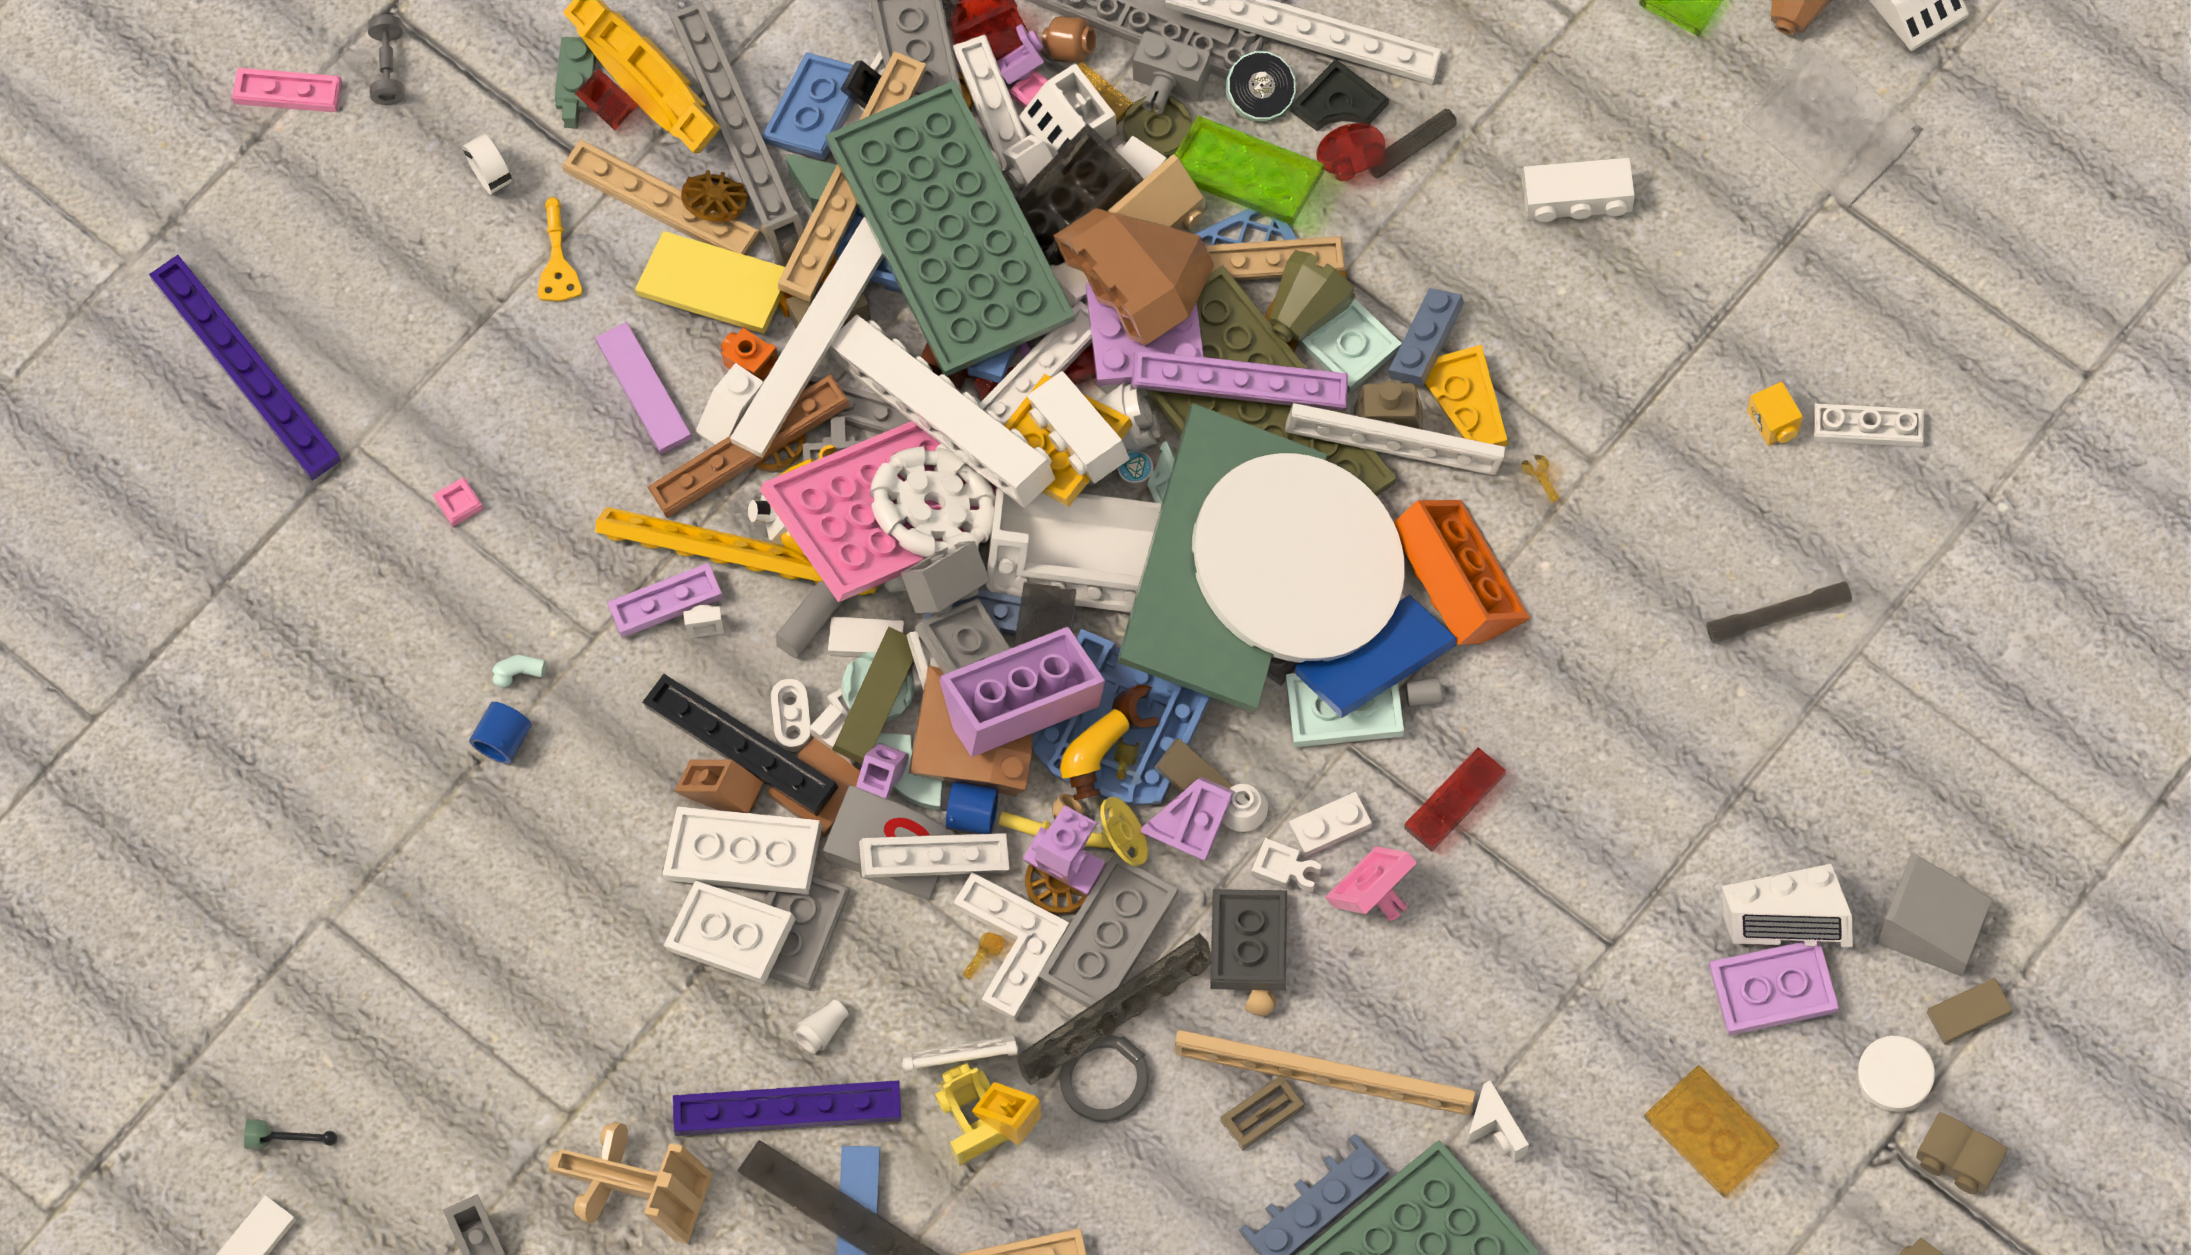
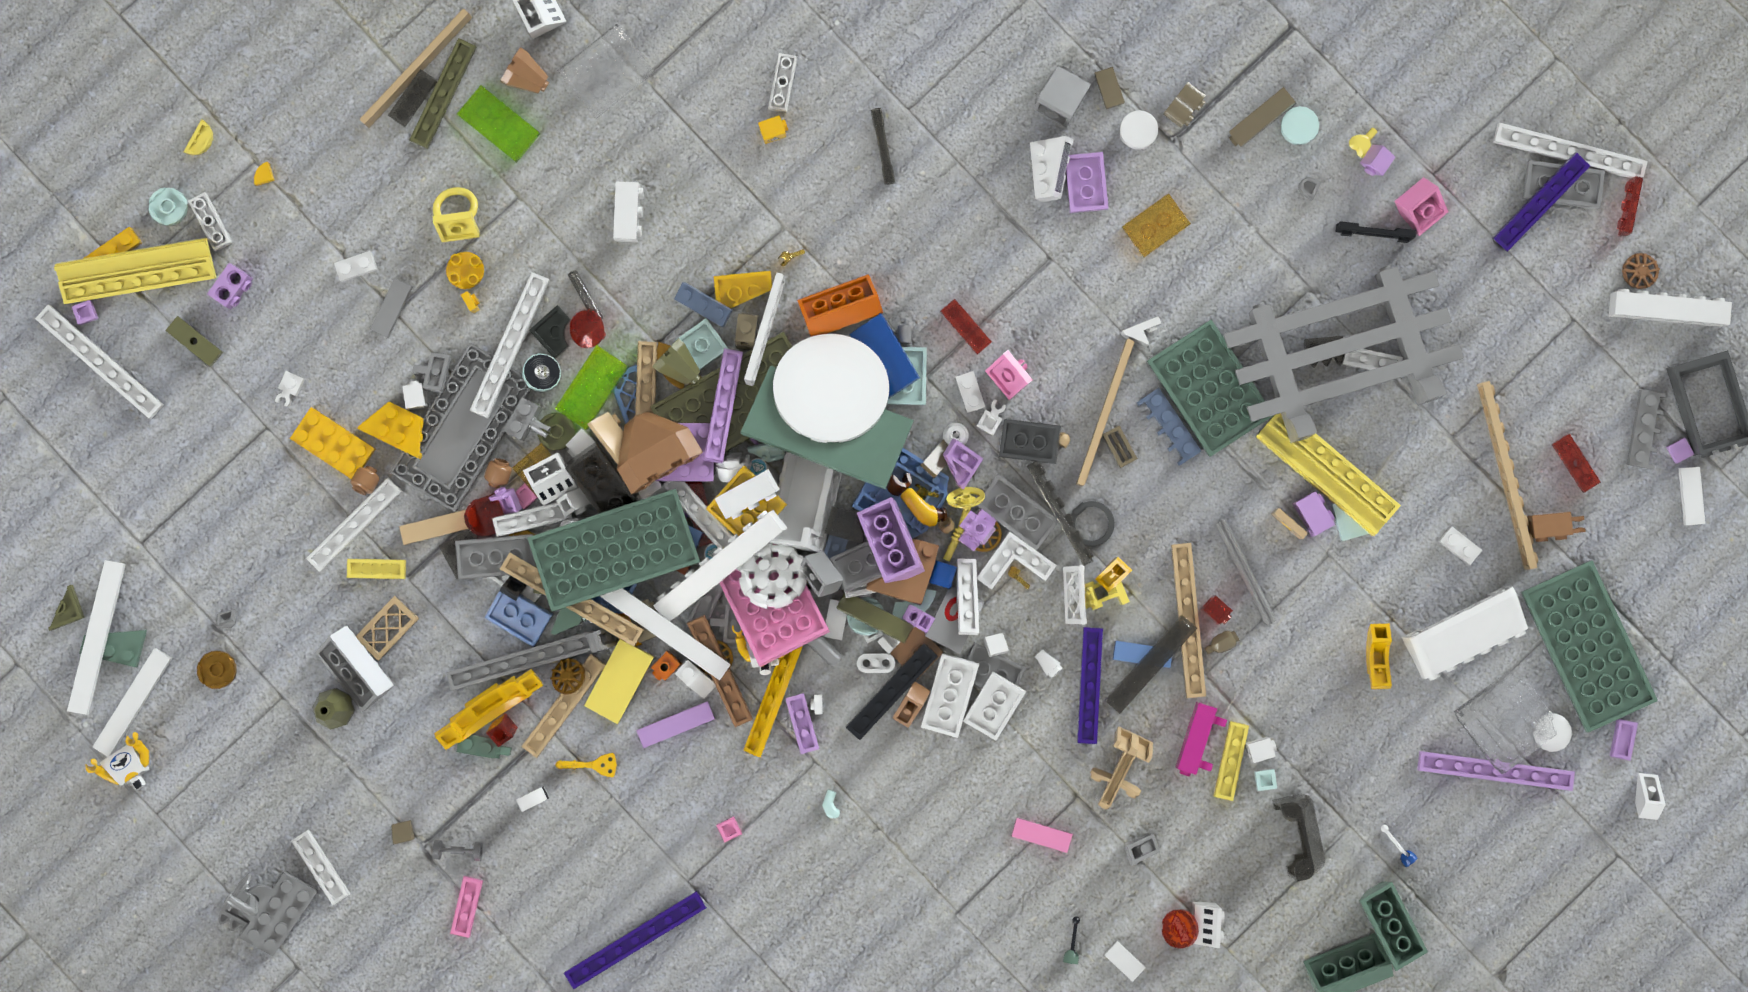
camera: 85 degrees left, 20 degrees up
(489, 1055) = (1041, 835): none -> bright pink tile
(500, 732) = (868, 816): blue piece -> none
(848, 925) = (996, 644): none -> white tile

